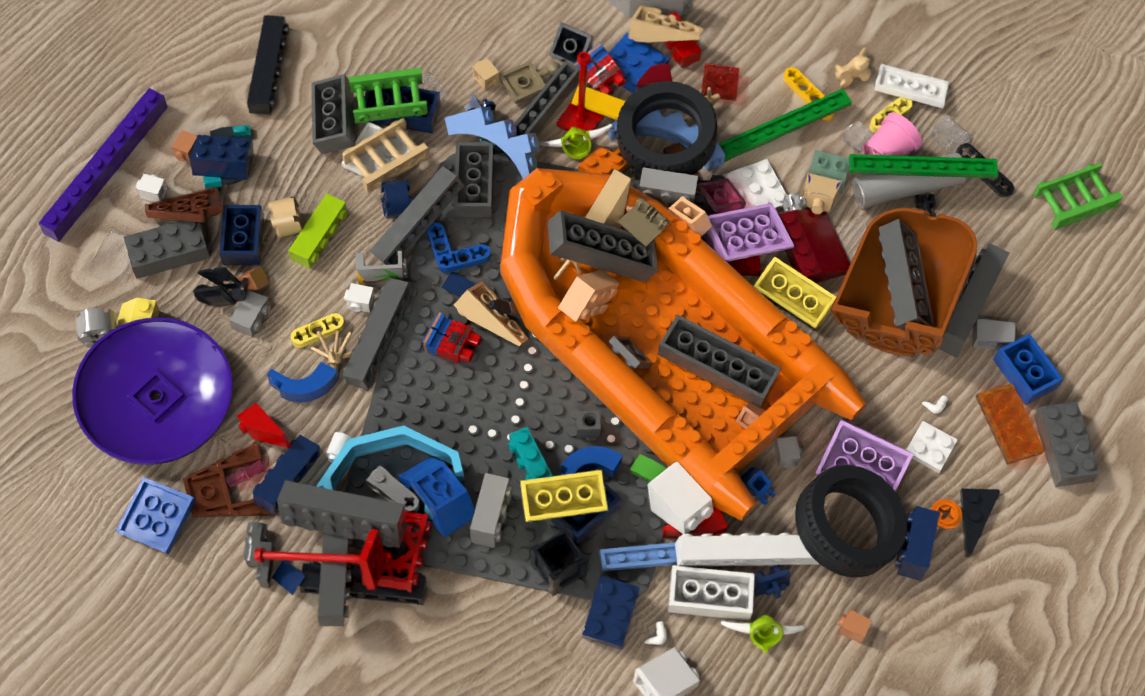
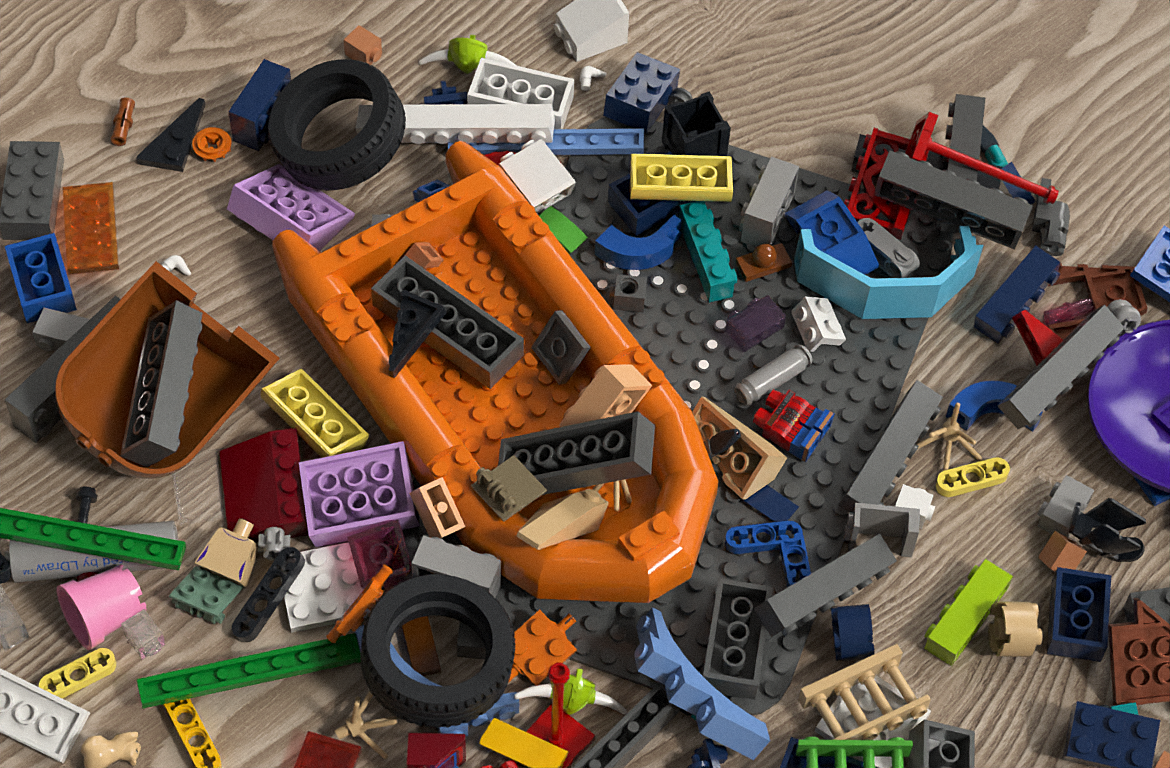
camera: 170 degrees left, 5 degrees down
(204, 457) = (1126, 315): none -> light grey piece
(252, 400) = (1061, 367): none -> brick
(310, 621) = (991, 149): none -> piece
(336, 444) = (949, 321): white brick -> none
(440, 423) = (817, 323): none -> white bracket
(470, 375) = (773, 374): none -> light grey axle
(489, 414) = (755, 322): none -> clear purple brick
(495, 466) = (763, 261): none -> dark orange tile
(577, 619) = (679, 95): none -> dark grey bush
(724, 156) = (356, 612): none -> orange plate
(740, 336) = (415, 323): none -> black wing
(786, 172) = (264, 592): none -> black beam
(931, 446) = (200, 220): white plate -> none
(1021, 511) = (120, 133): none -> dark orange pin

